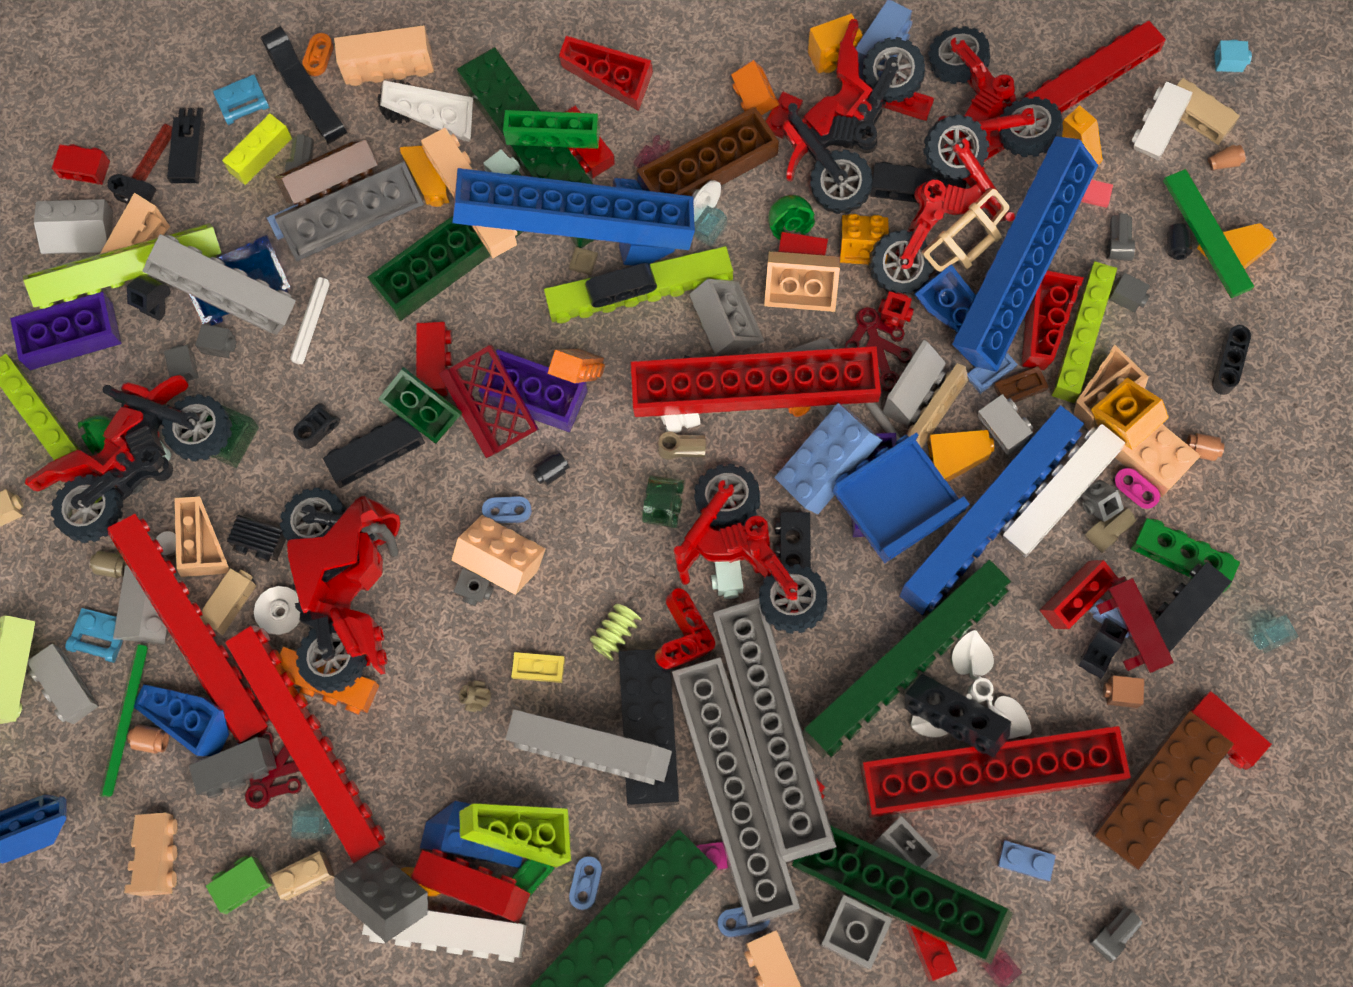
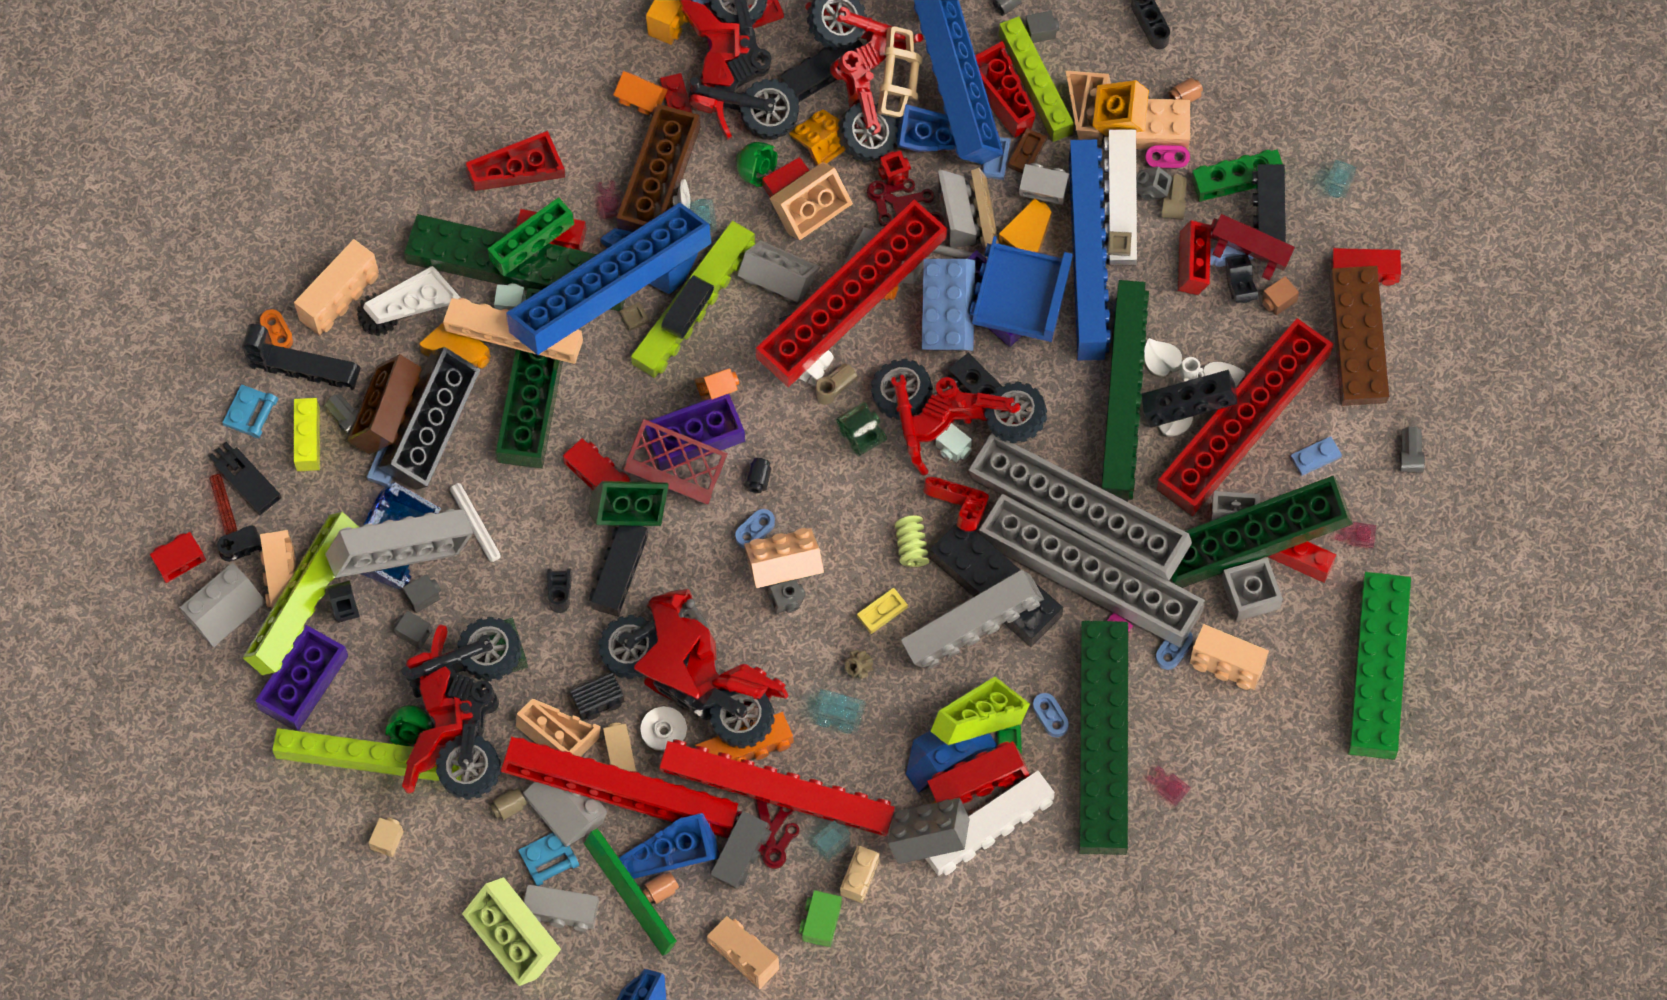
camera: 45 degrees left, 5 degrees down
(422, 721) = (838, 711): none -> clear light blue brick
(1023, 528) = (1119, 243): none -> dark tan tile

